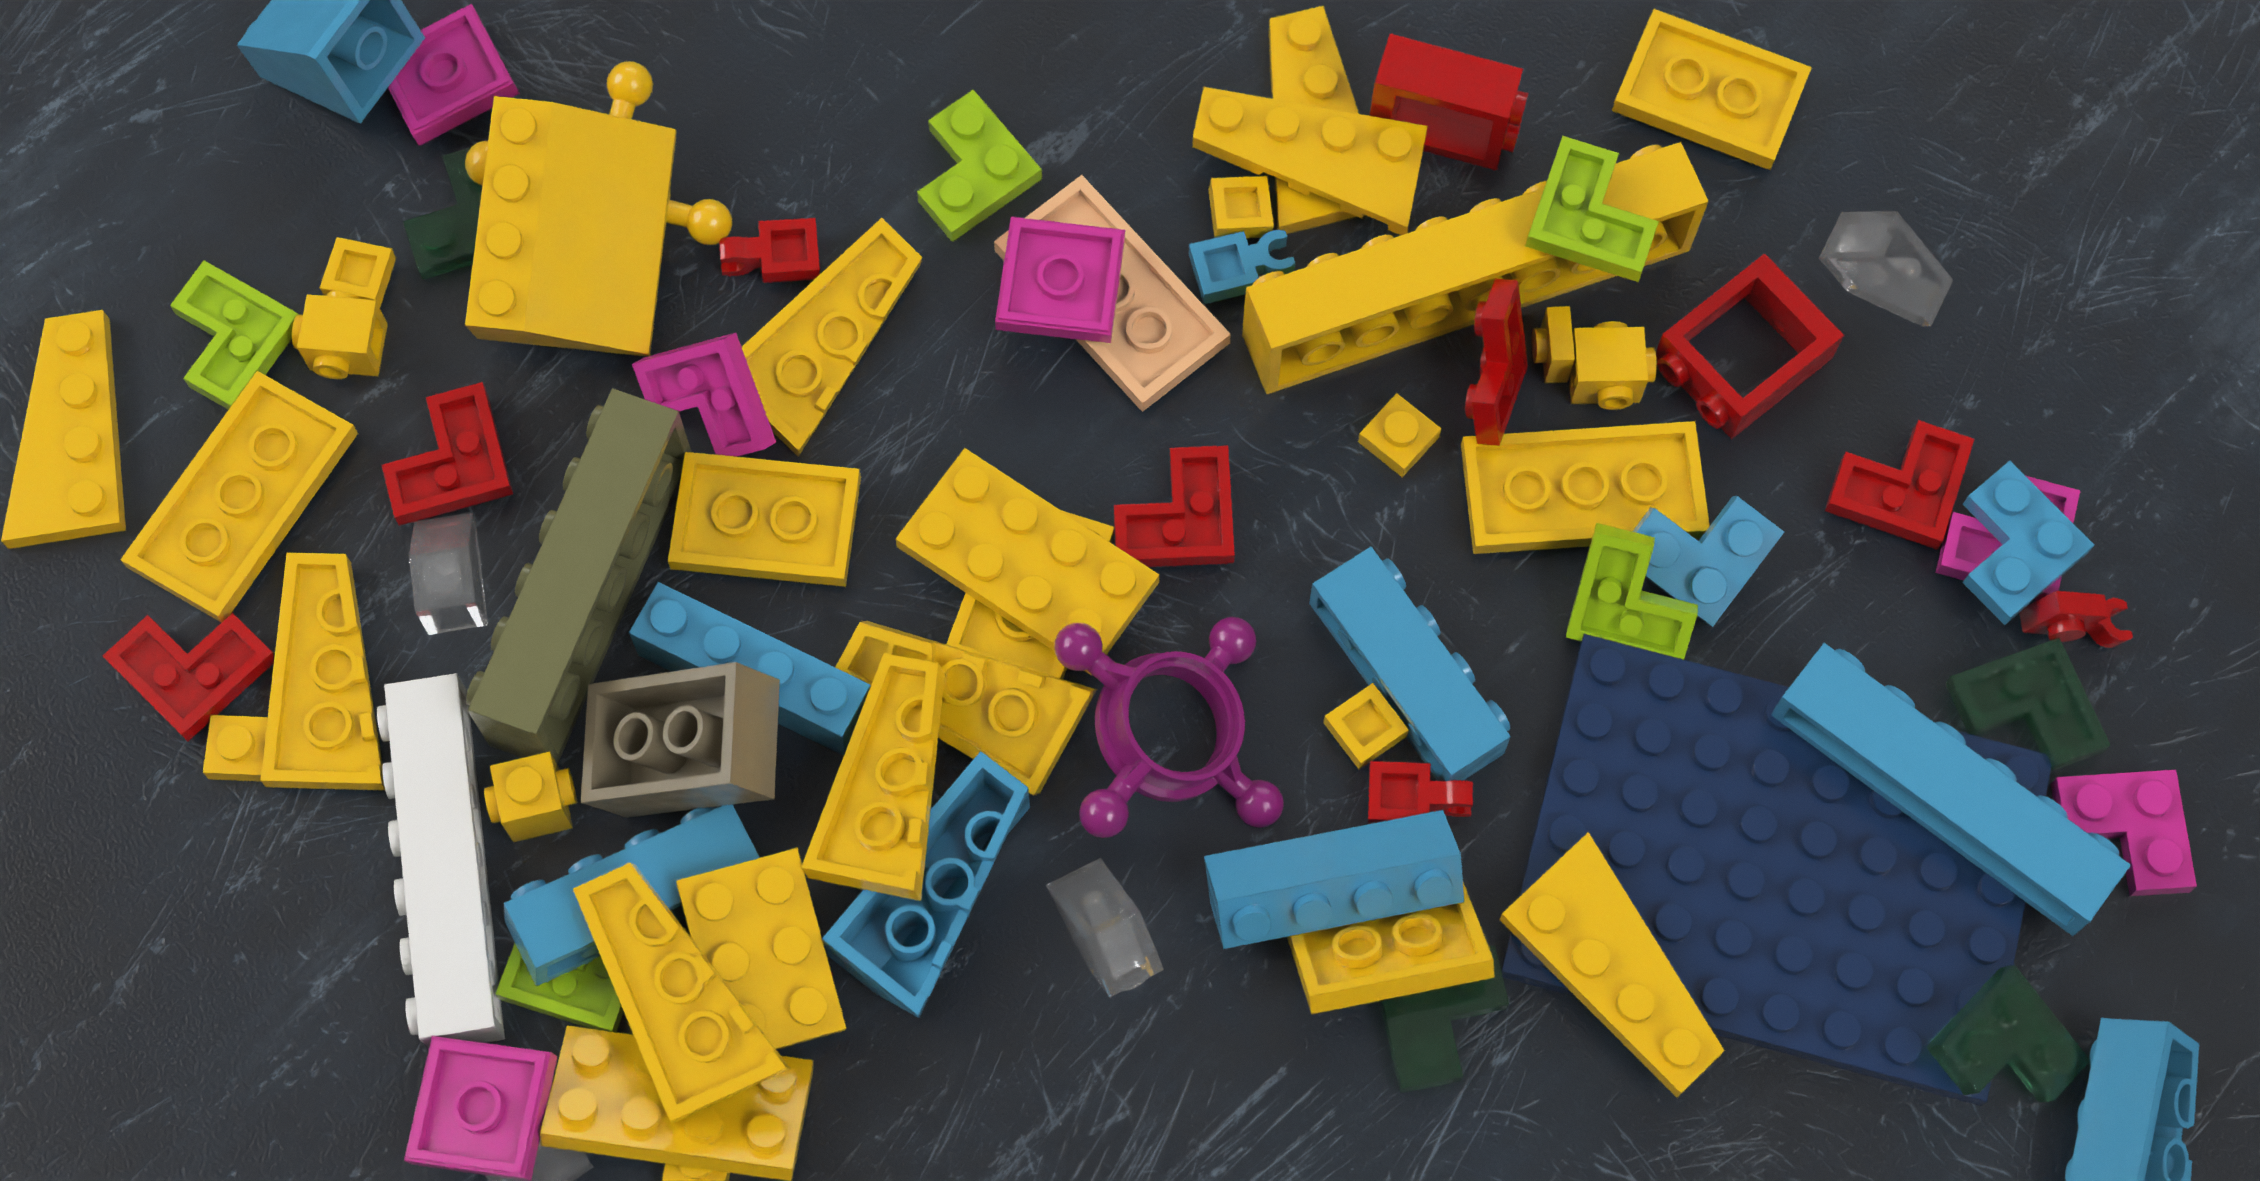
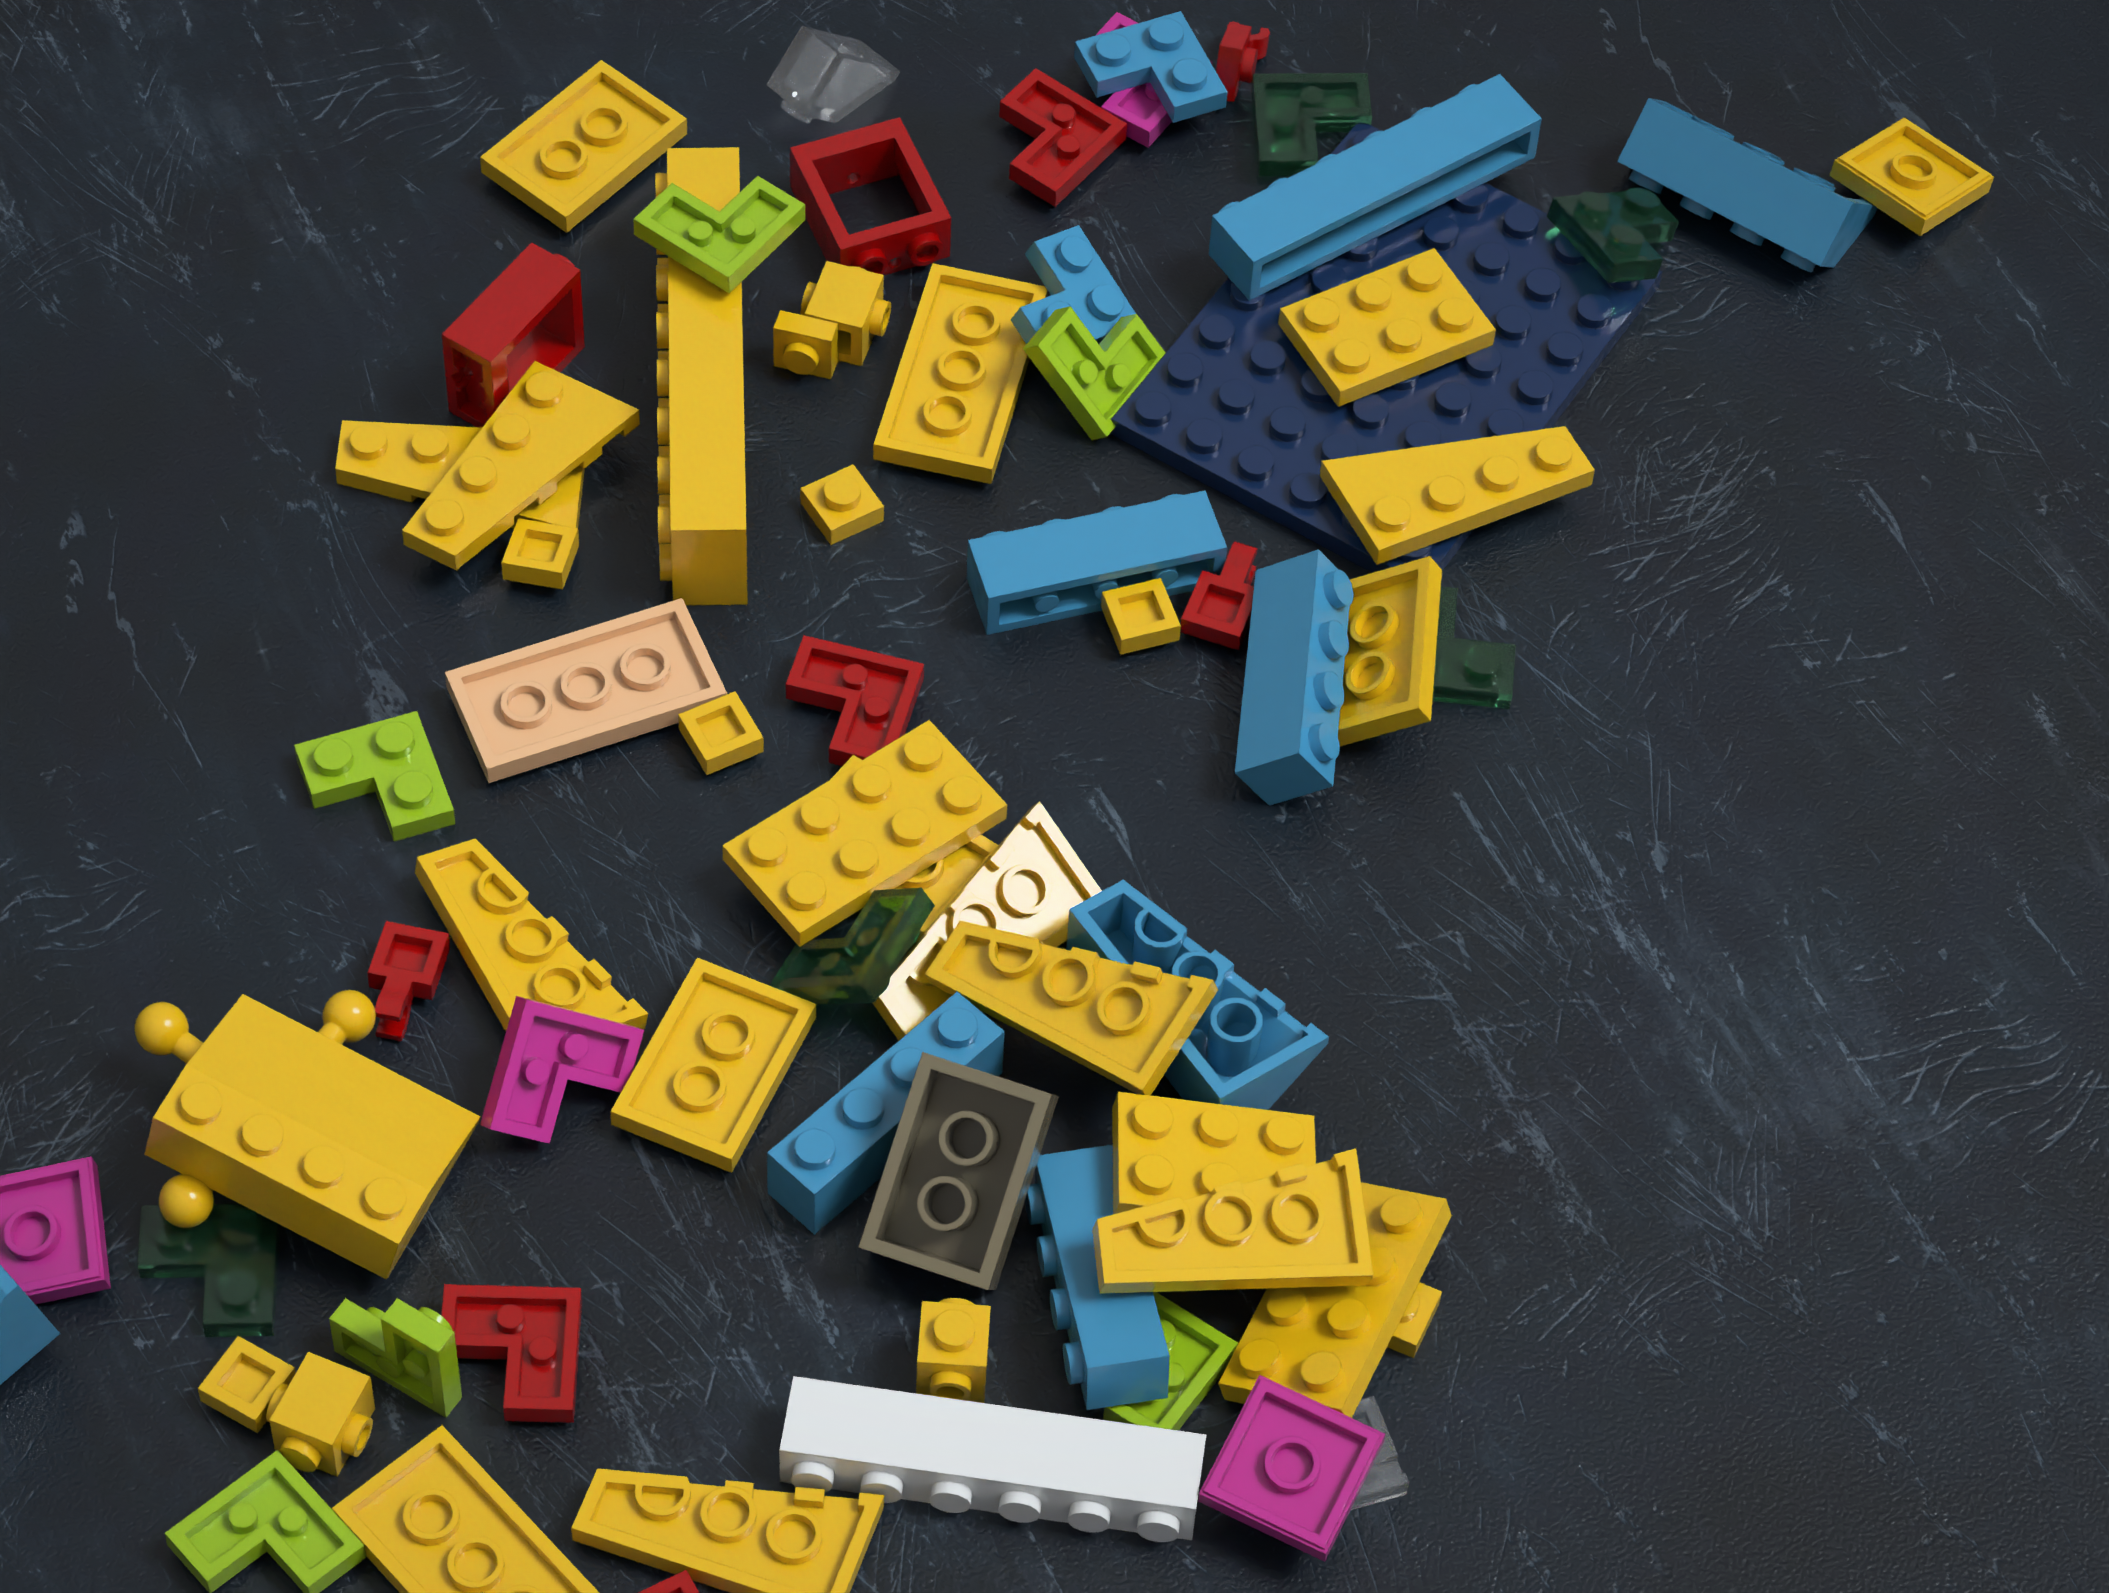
camera: 75 degrees left, 15 degrees down
(400, 370) = (402, 1347): none -> lime plate
(447, 574) = (654, 1376): clear slope -> none
(580, 577) = (730, 1229): olive brick -> none
(882, 595) = (862, 962): none -> clear green plate
(1060, 280) = (566, 712): dark pink plate -> none
(1105, 414) = (721, 733): none -> yellow plate
(1106, 810) = (1084, 789): magenta piece -> none
(1106, 927) = (1272, 882): clear slope -> none
(1230, 265) = (602, 578): dark azure plate -> none
(1501, 362) = (813, 384): red plate -> none
(1785, 849) = (1386, 327): none -> yellow plate
(2147, 818) = (1433, 75): dark pink plate -> none

